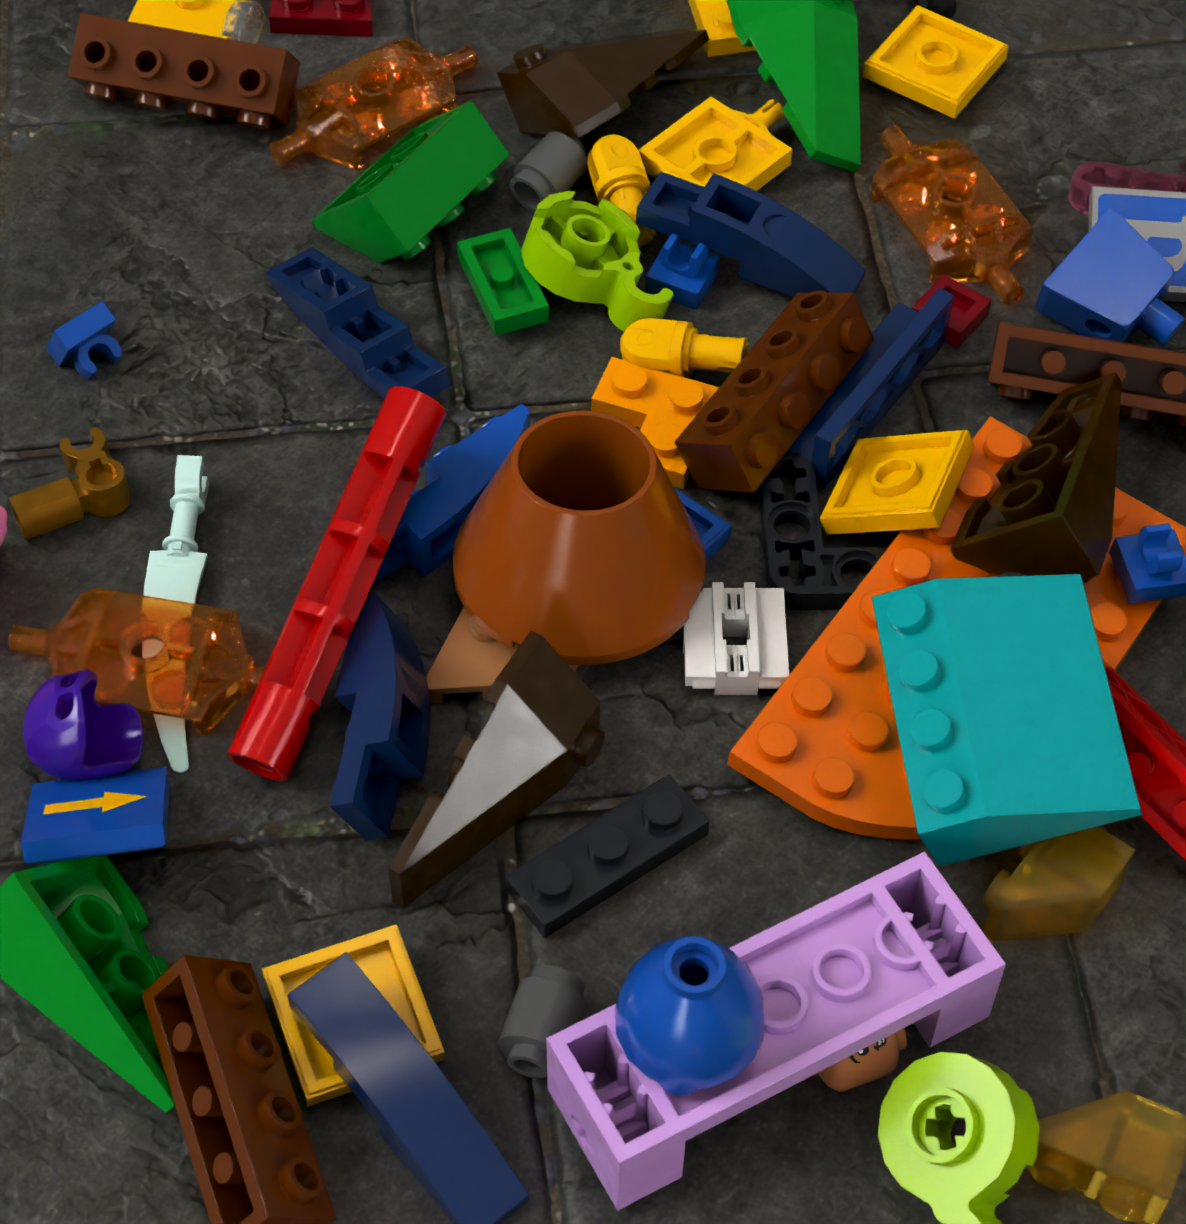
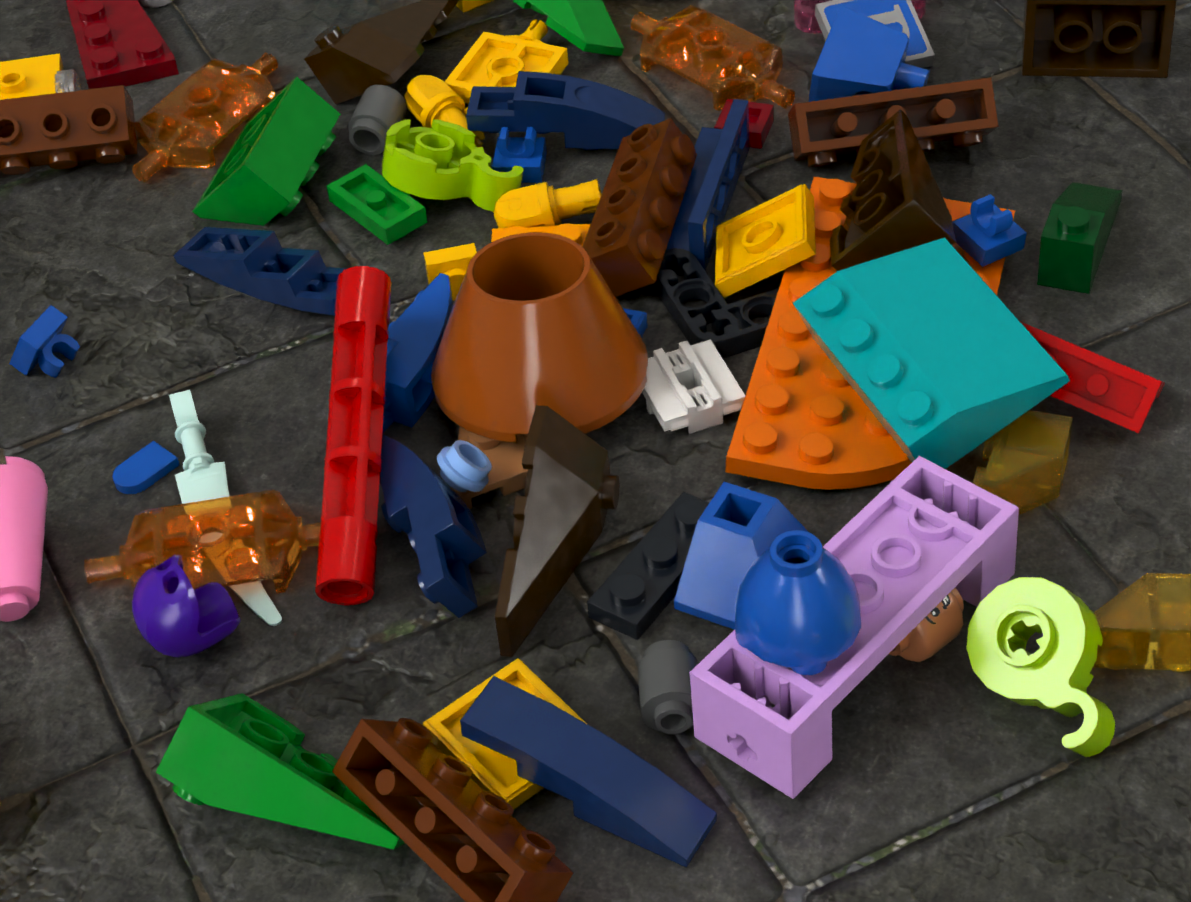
camera: 15 degrees left, 10 degrees down
(96, 816) = (229, 663): blue tile -> none
(97, 489) = (97, 445): pearl gold bar -> none
(126, 528) = (144, 469): none -> blue piece
(442, 661) = (464, 466): none -> light blue plate
(543, 394) = (449, 261): none -> yellow plate
(693, 881) = (725, 543): none -> blue slope

